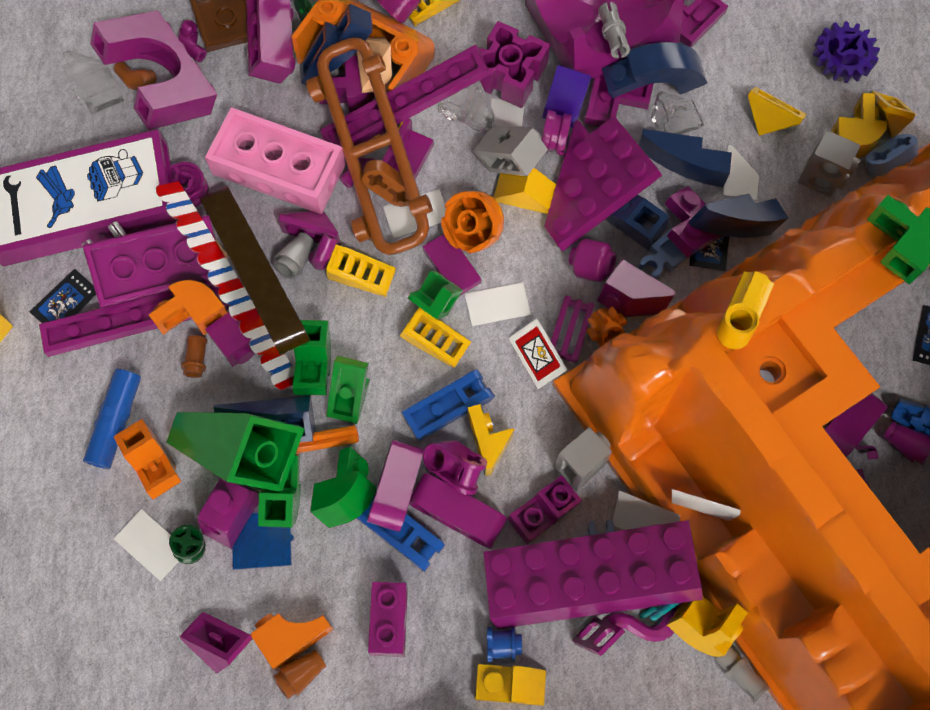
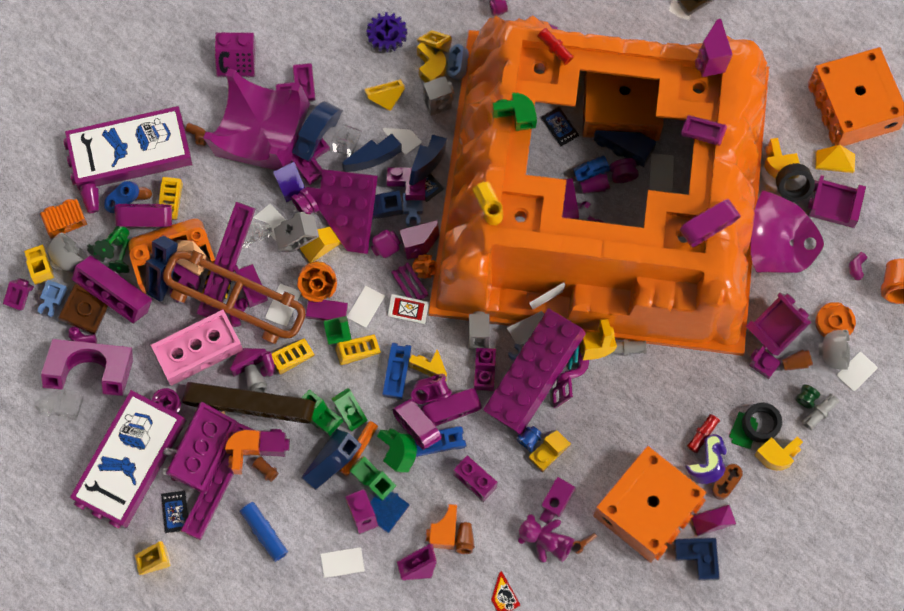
camera: 50 degrees left, 0 degrees up
(134, 78) = (78, 382): dark orange arm -> none
(147, 458) = (301, 528): orange brick -> none
(186, 537) = (359, 538): dark green wheel -> none
(223, 276) = (244, 420): sticker -> none
(238, 446) = (337, 477): green slope -> none
(385, 182) = (258, 304): dark orange beam -> none
(513, 63) = (254, 184): magenta brick -> none
(614, 30) = (281, 130): light grey pin -> none

